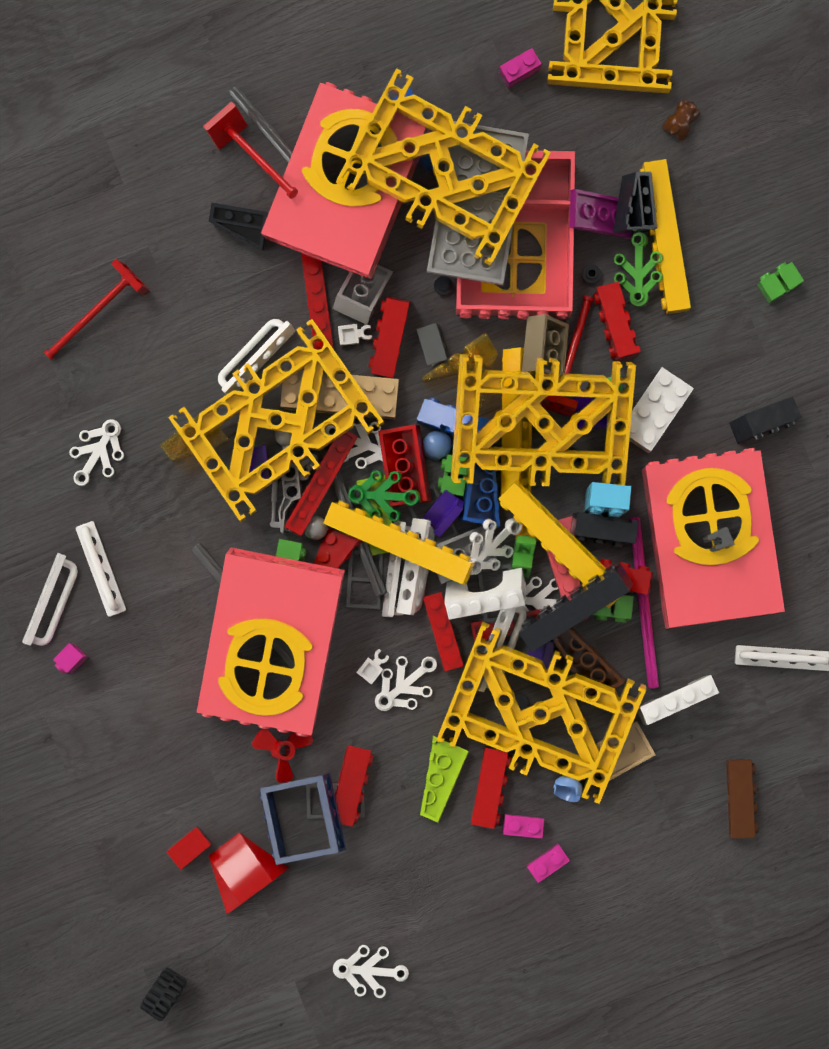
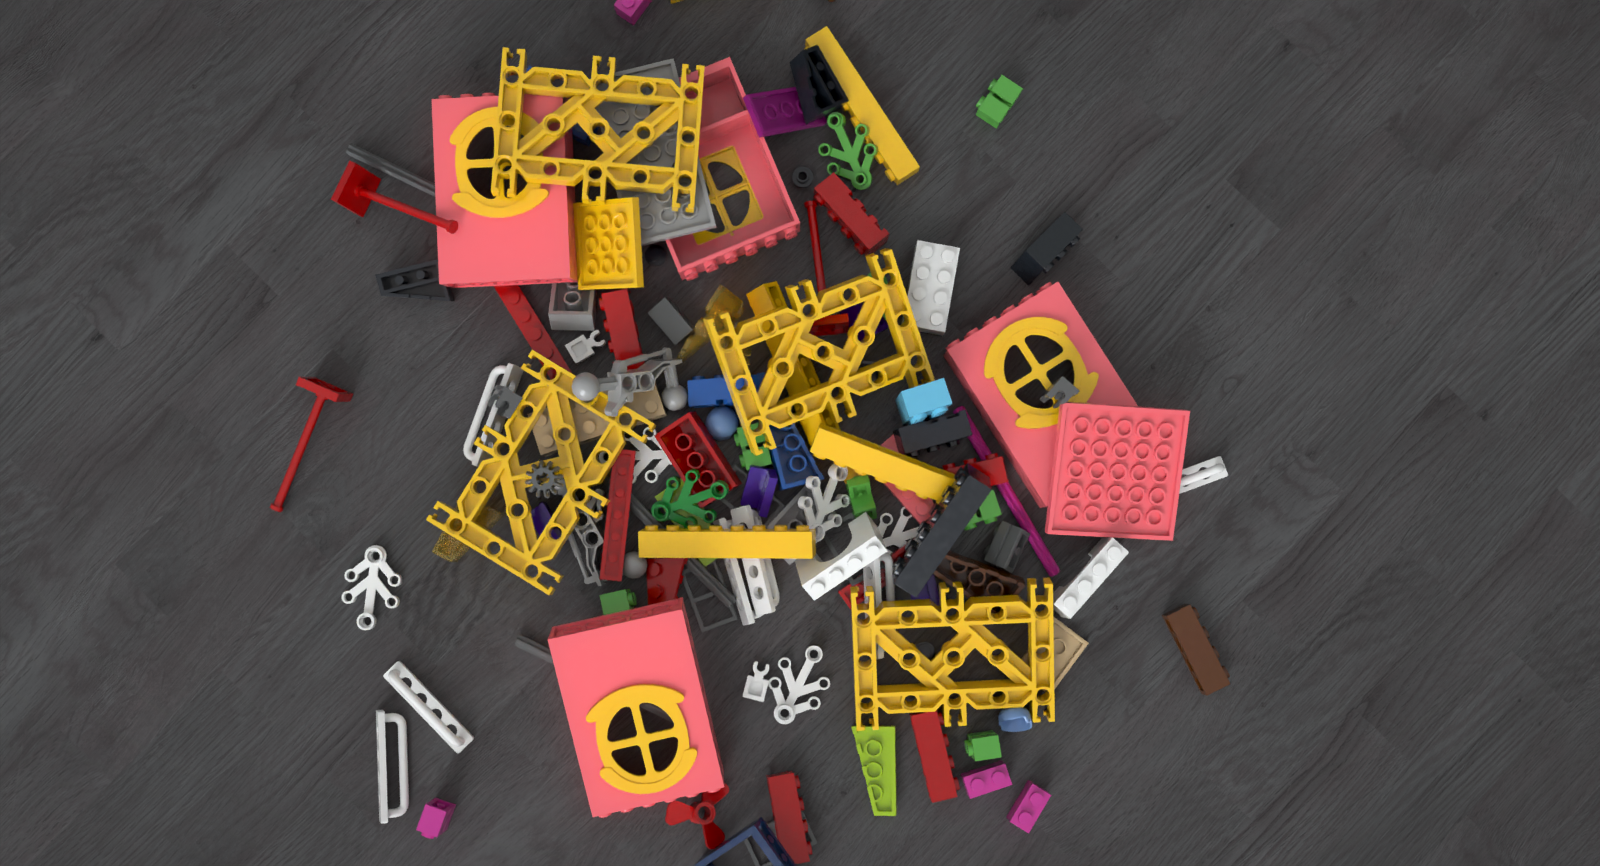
camera: 25 degrees left, 0 degrees up
(273, 352) = (506, 401): none -> dark grey hinge
(277, 419) = (546, 487): none -> dark grey gear
(372, 378) = (623, 382): none -> light grey piece
(410, 261) = (608, 244): none -> yellow plate
(443, 631) = (813, 615): red brick -> none
(532, 797) = (983, 745): none -> bright green piece
(544, 339) = (786, 264): dark tan brick -> none
(623, 647) = (1006, 546): none -> dark grey brick
(738, 624) = (1116, 471): none -> coral plate

